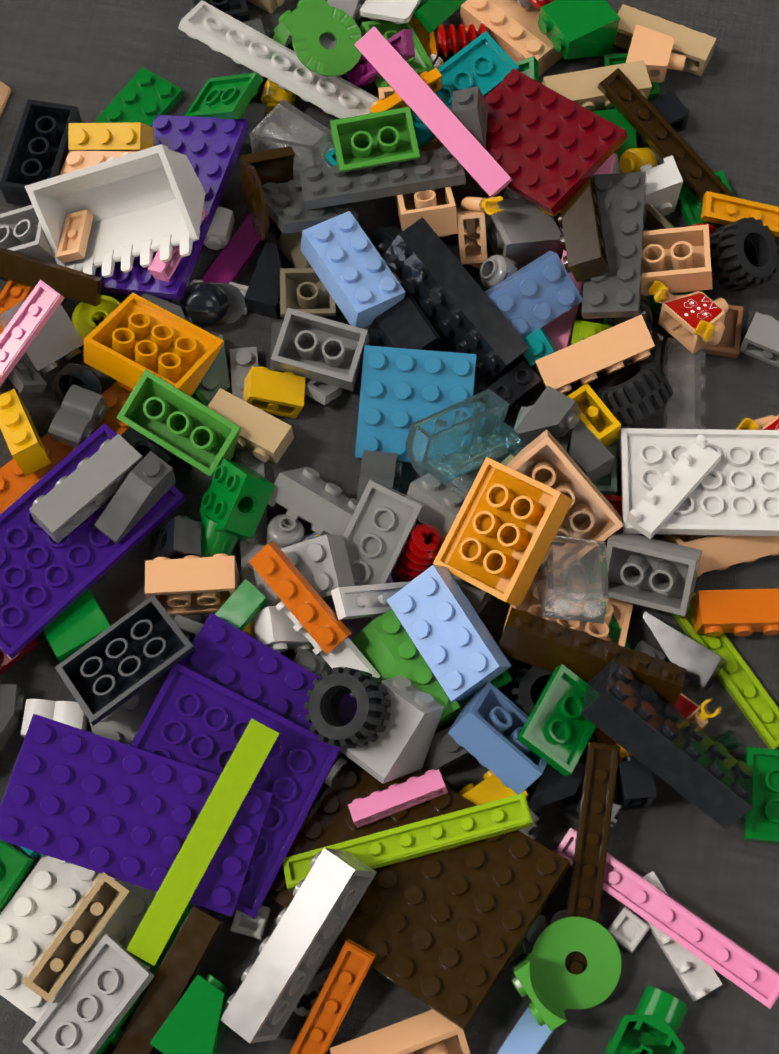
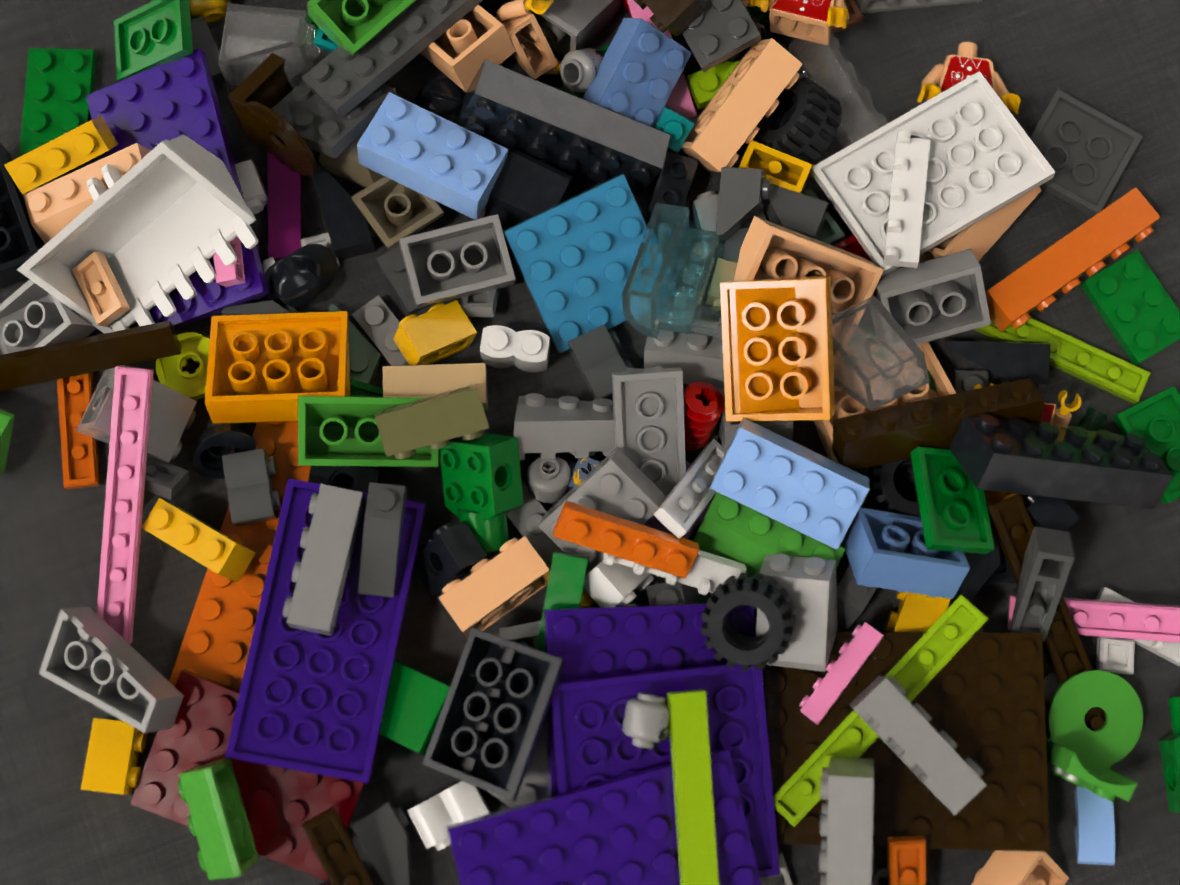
camera: 40 degrees left, 10 degrees up
(223, 438) = (432, 421): none -> olive brick
(224, 730) = (646, 720): none -> light grey head
(321, 433) = (506, 348): none -> white brick
(414, 876) = (918, 744): none -> light grey wedge
(592, 820) = (1042, 580): none -> dark grey slope

